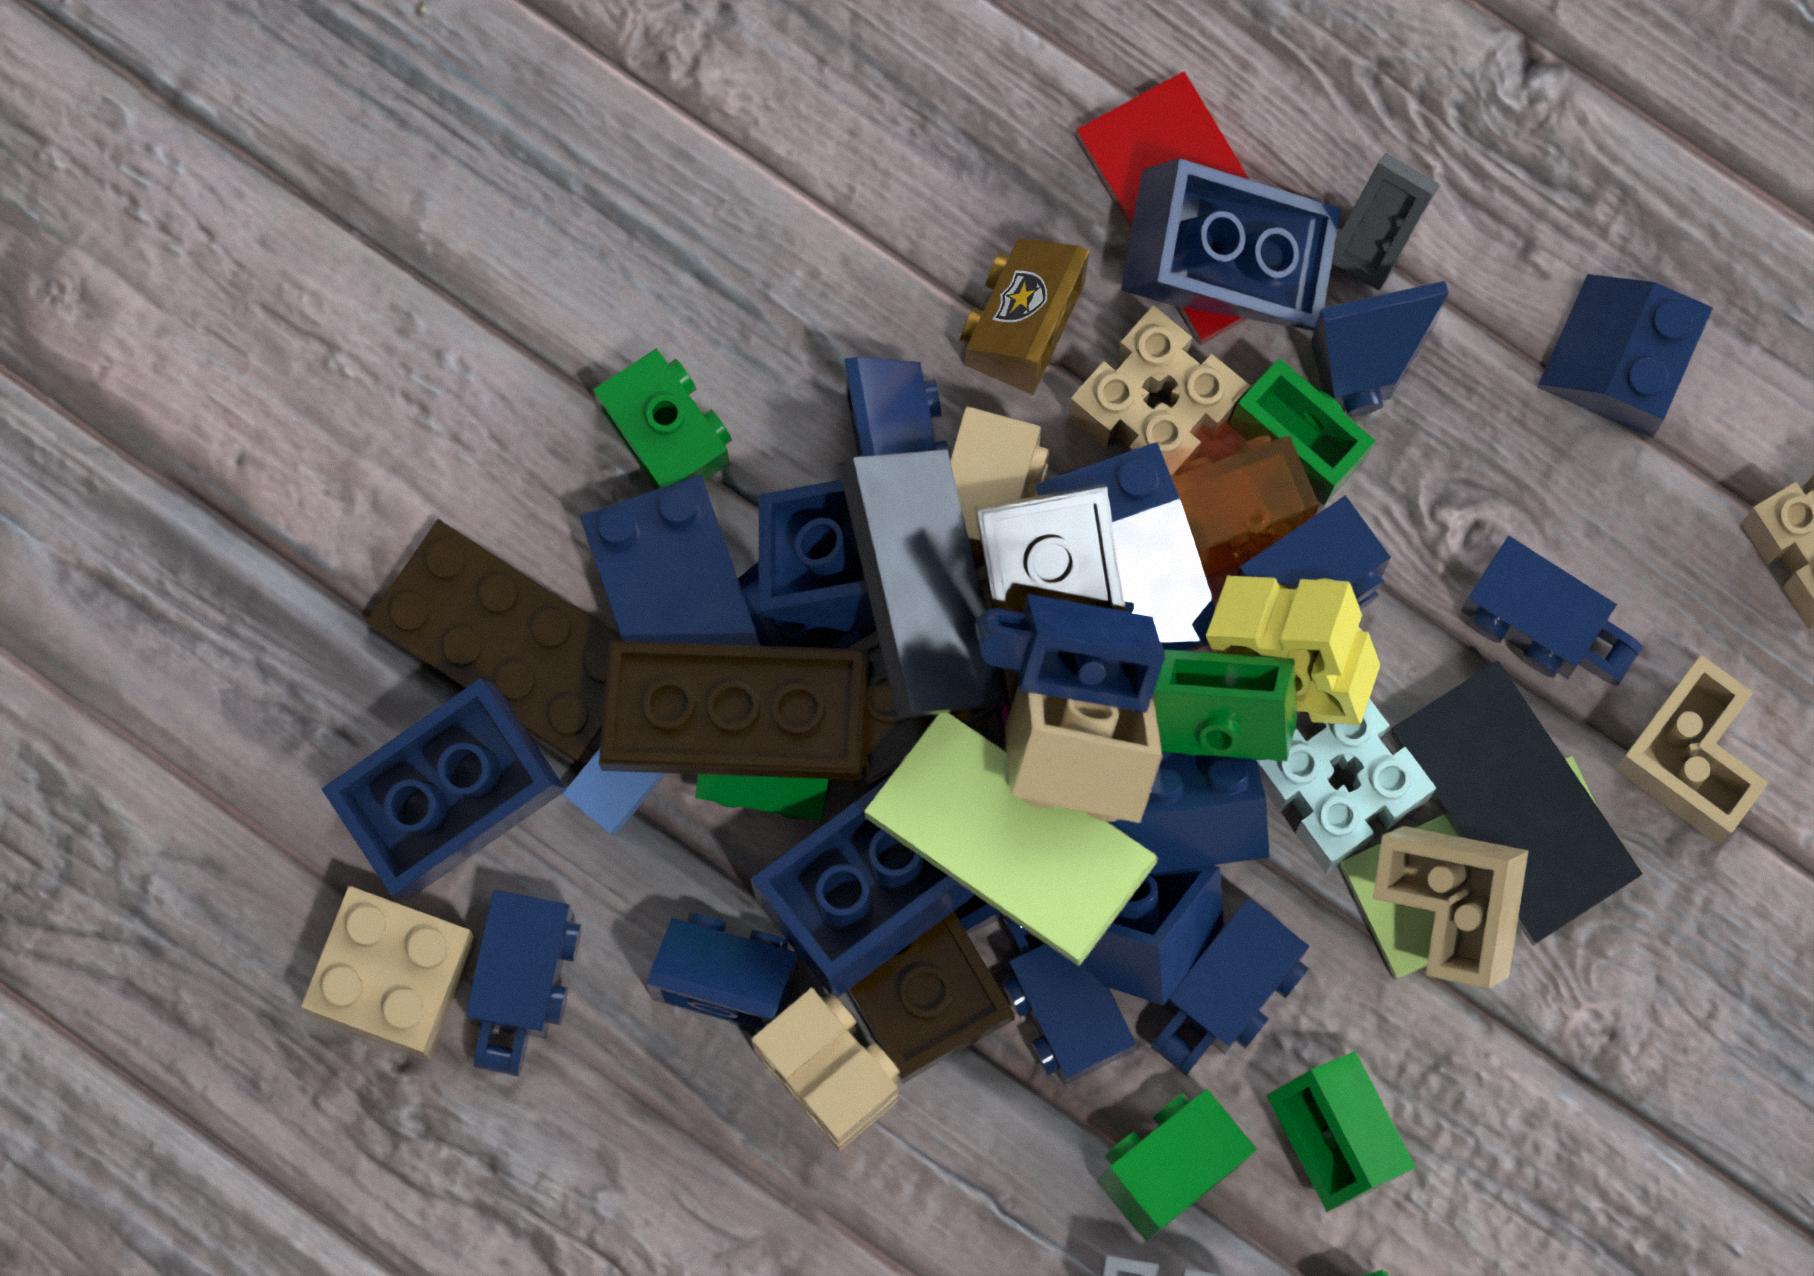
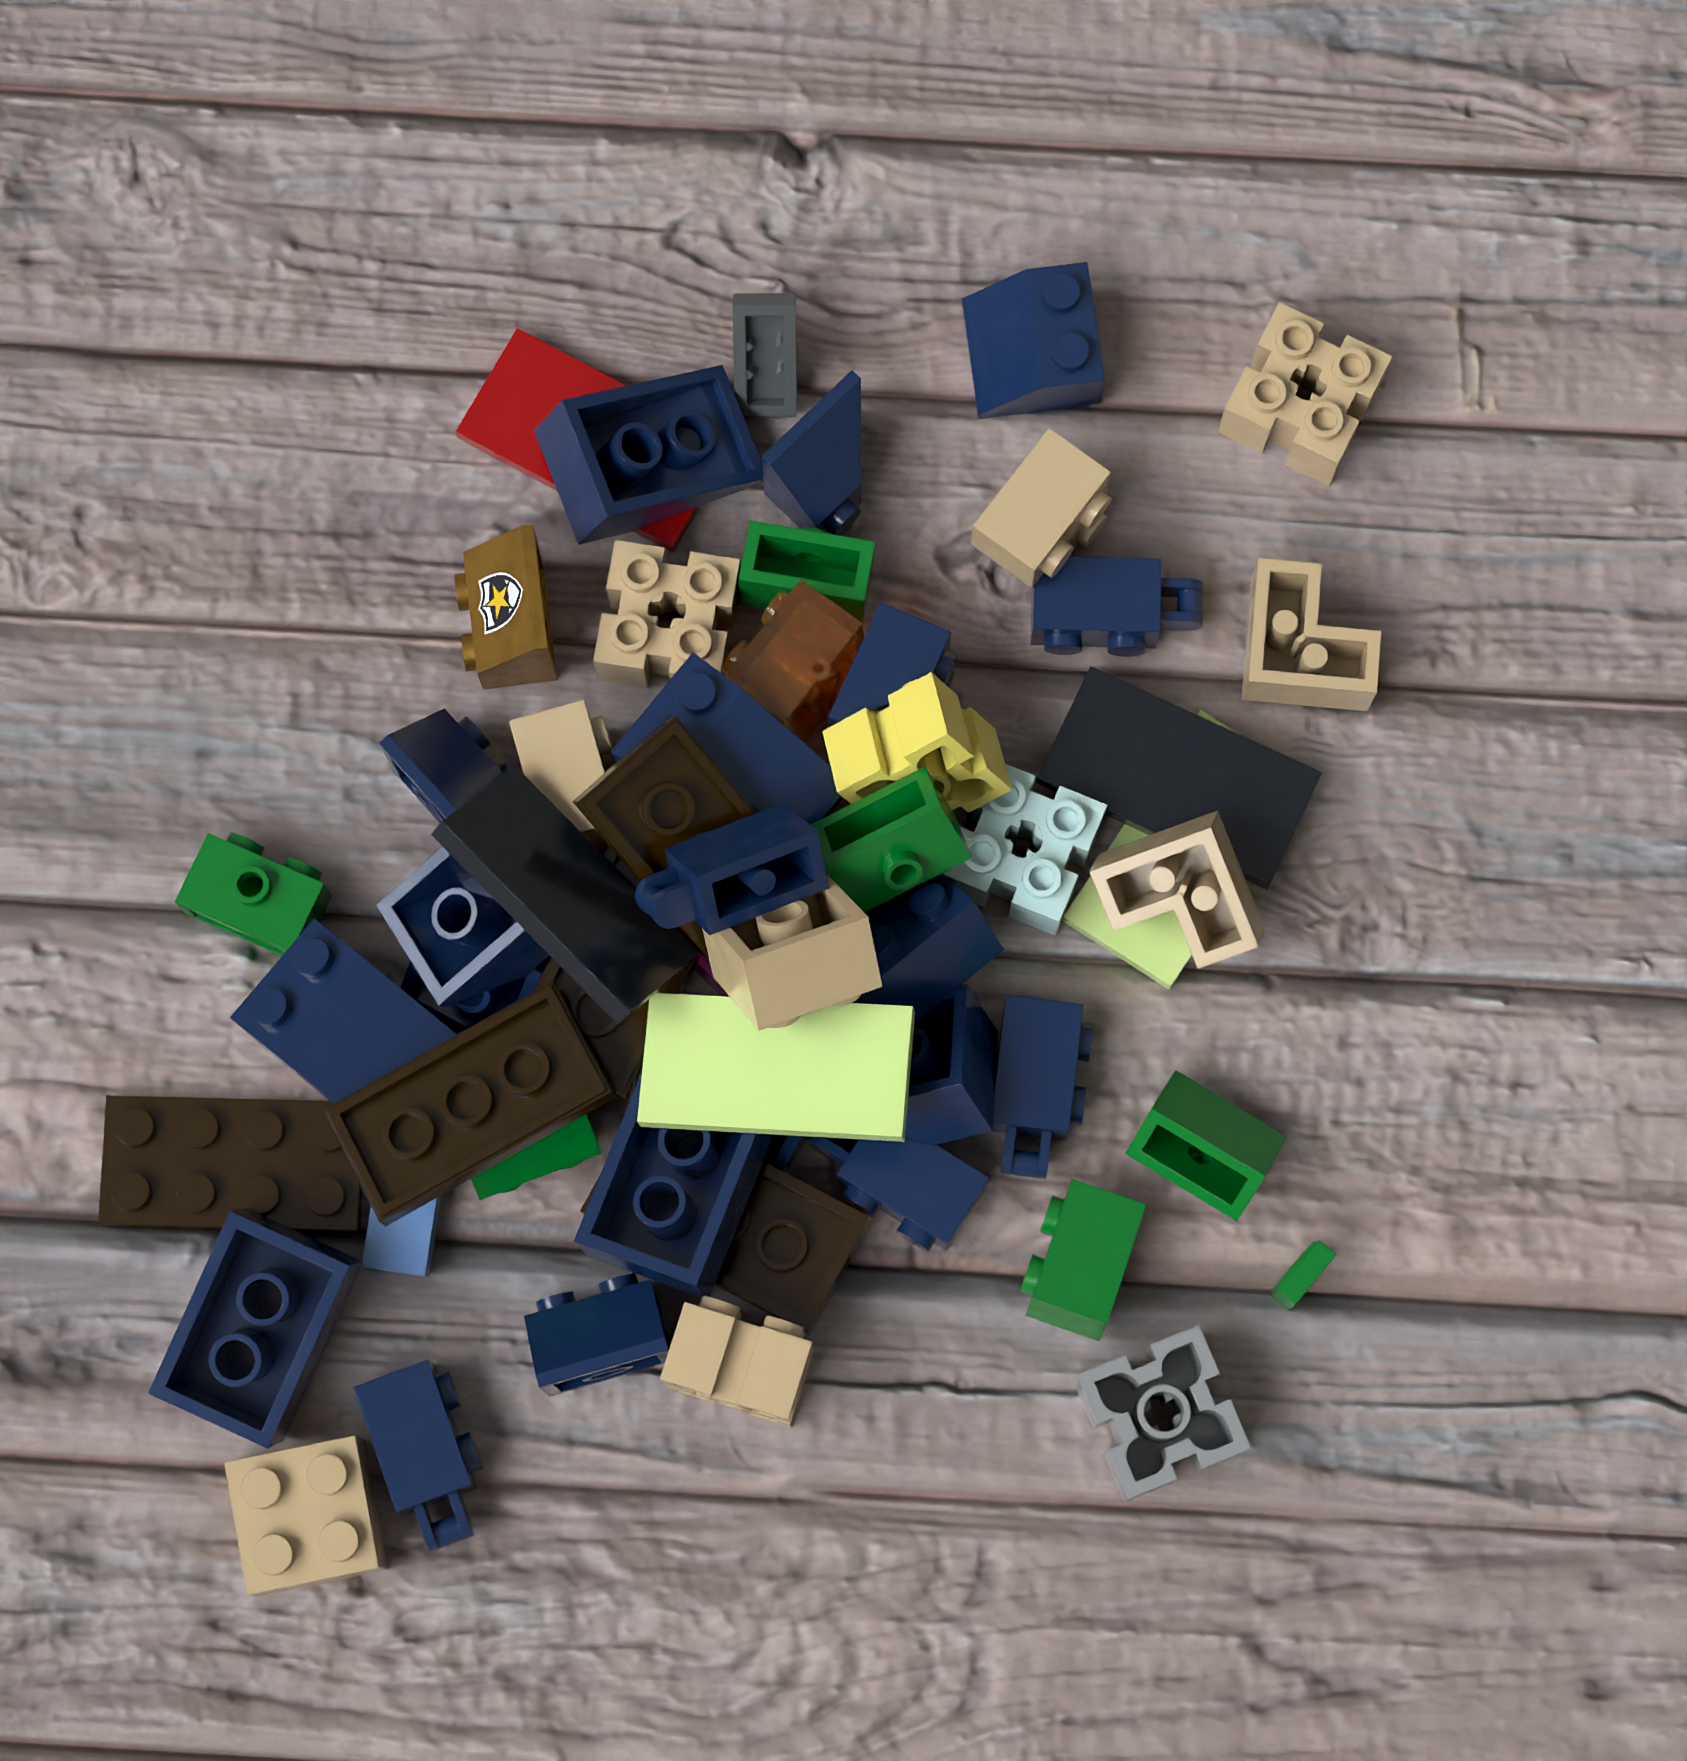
camera: 30 degrees left, 0 degrees up
(1539, 502) = (1044, 510): none -> tan brick

